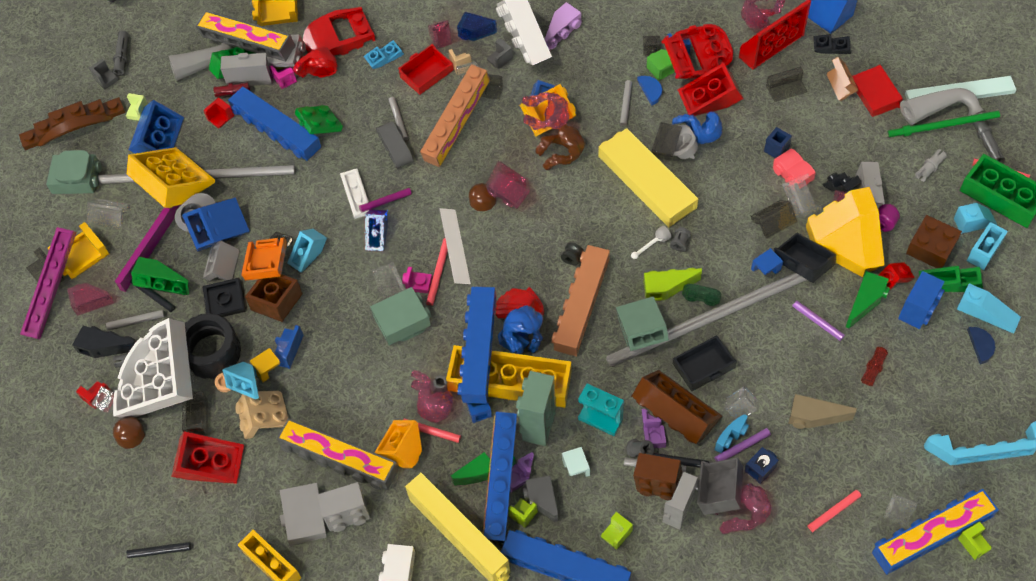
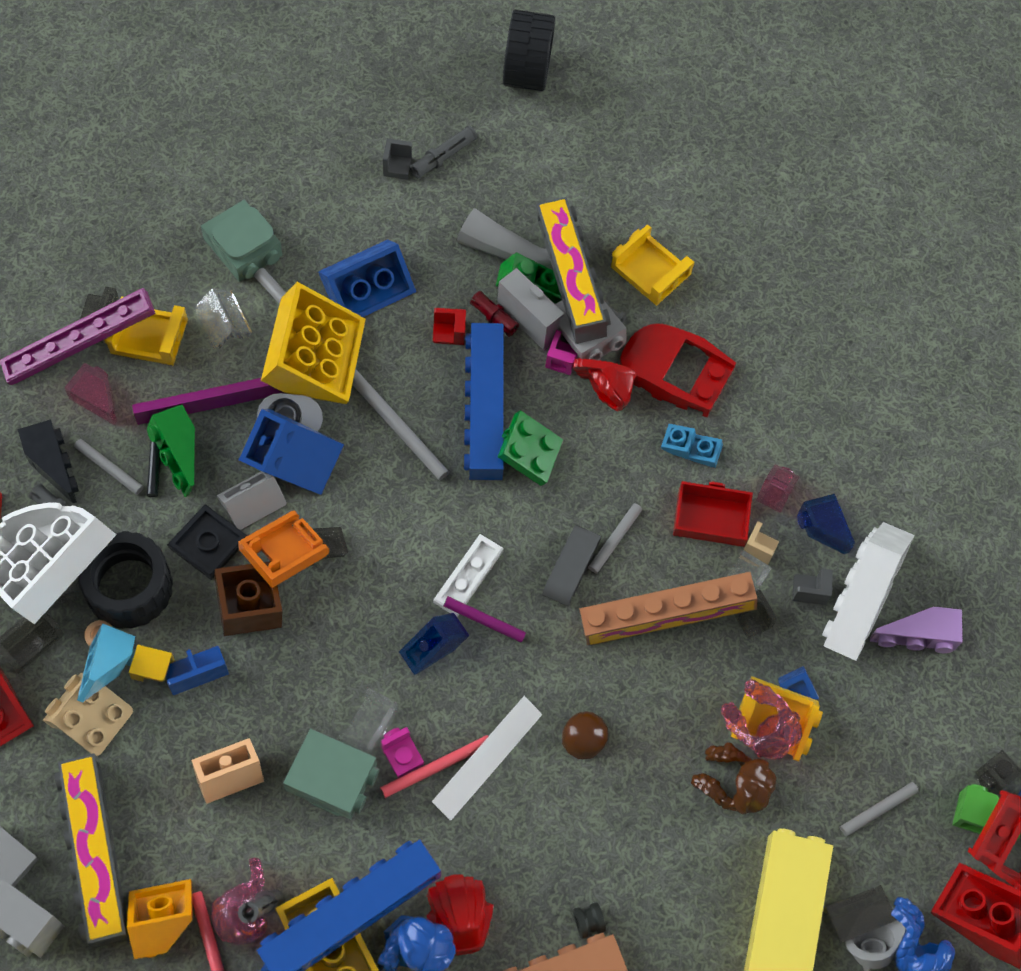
camera: 40 degrees right, 5 degrees up
(70, 119) = (310, 179): reddish brown piece -> none
(137, 103) = (384, 230): yellowish green panel -> none
(306, 249) = (343, 582): medium azure slope -> none
(355, 362) = (228, 770): none -> light nougat brick
(507, 185) = (622, 757): clear pink slope -> none
(651, 88) = (930, 826): blue tile -> none

